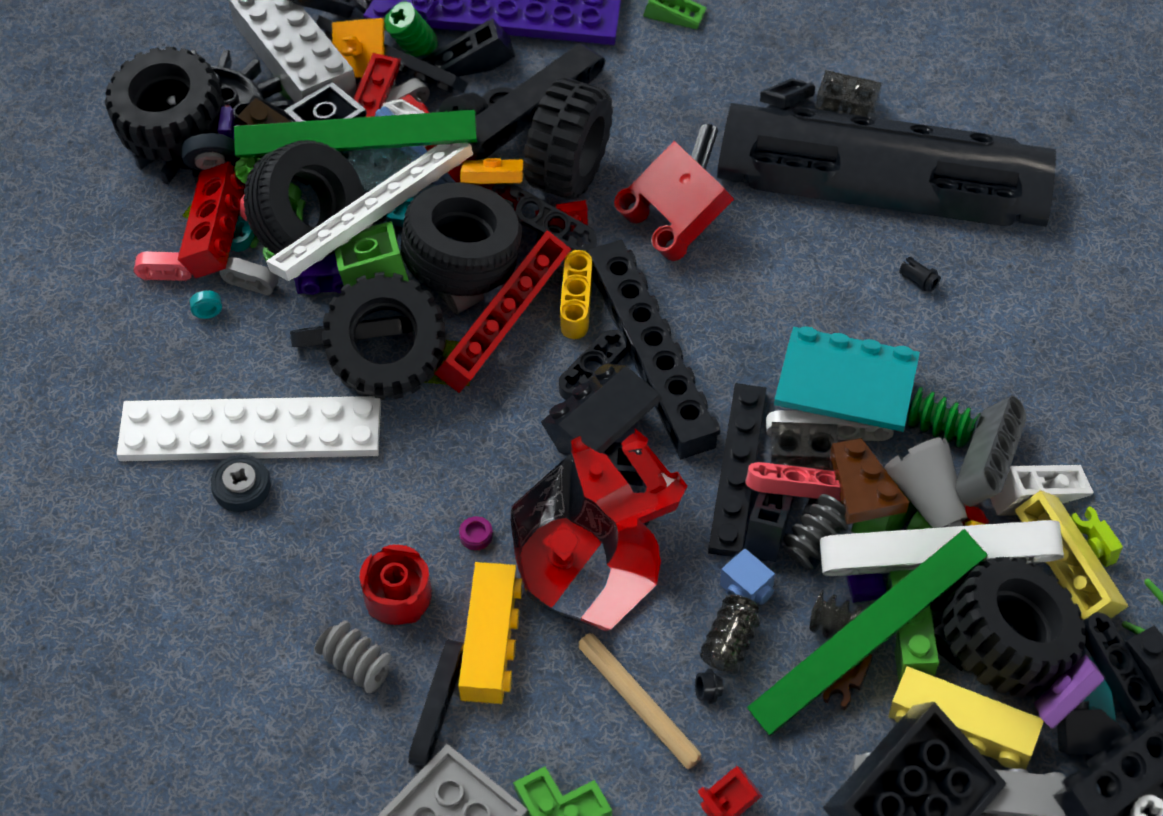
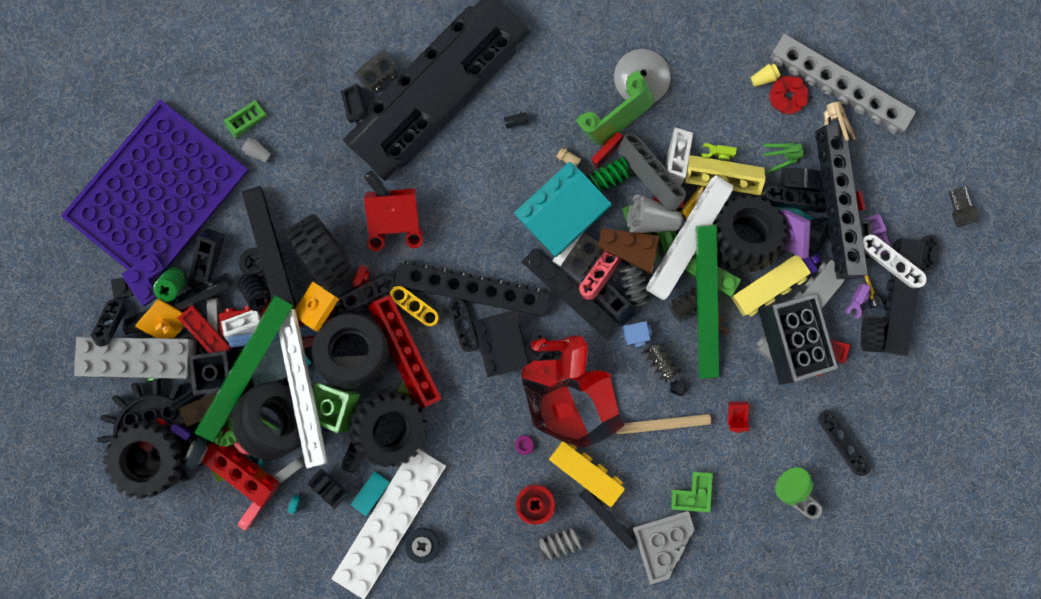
camera: 55 degrees left, 30 degrees up
(252, 323) = (328, 488): none -> black gear
(276, 381) = (370, 494): none -> teal slope
(645, 33) = (255, 150): none -> light grey cone
(925, 365) = (566, 156): none -> tan pin
(972, 394) = (607, 150): none -> red tile
(1038, 368) = (639, 101): none -> bright green windscreen
(1044, 758) = (810, 263): none -> dark purple tile
(1109, 400) = (645, 60): none -> light grey dish

